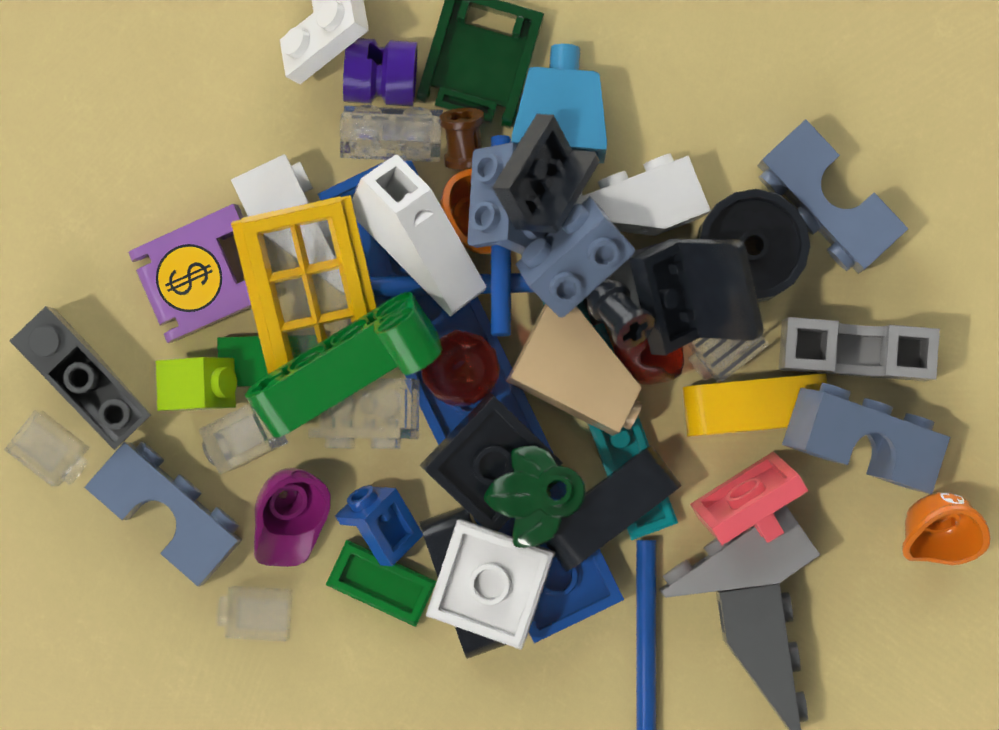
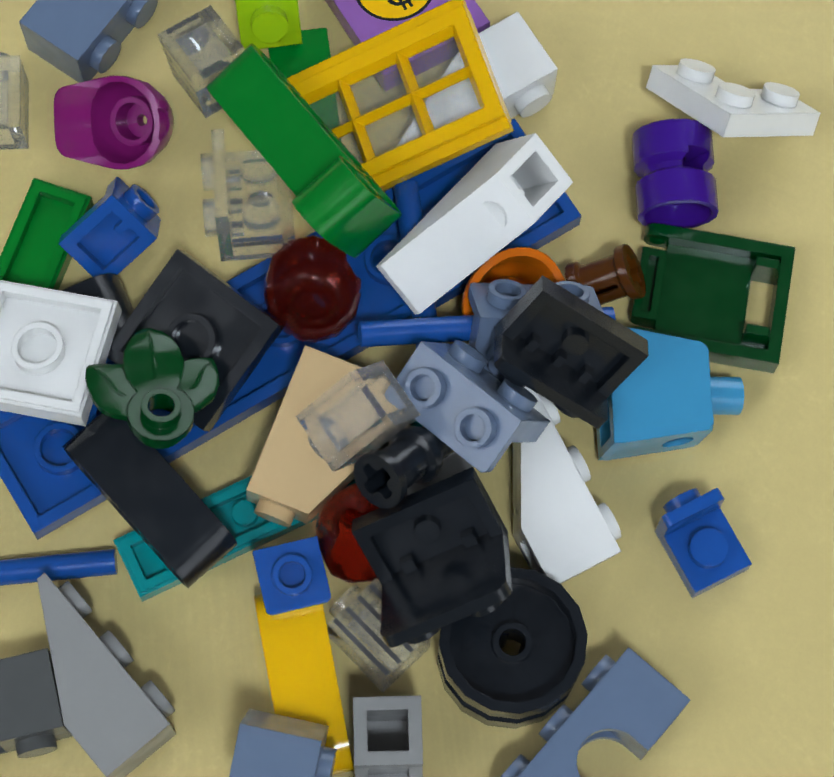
camera: 80 degrees right, 15 degrees down
(388, 131) = (601, 189): clear bracket -> none
(582, 340) = (357, 415): none -> clear brick
(677, 93) = (701, 541): none -> blue bracket
(679, 405) = (292, 576): none -> blue bracket
(750, 500) = (170, 673): coral hinge -> none

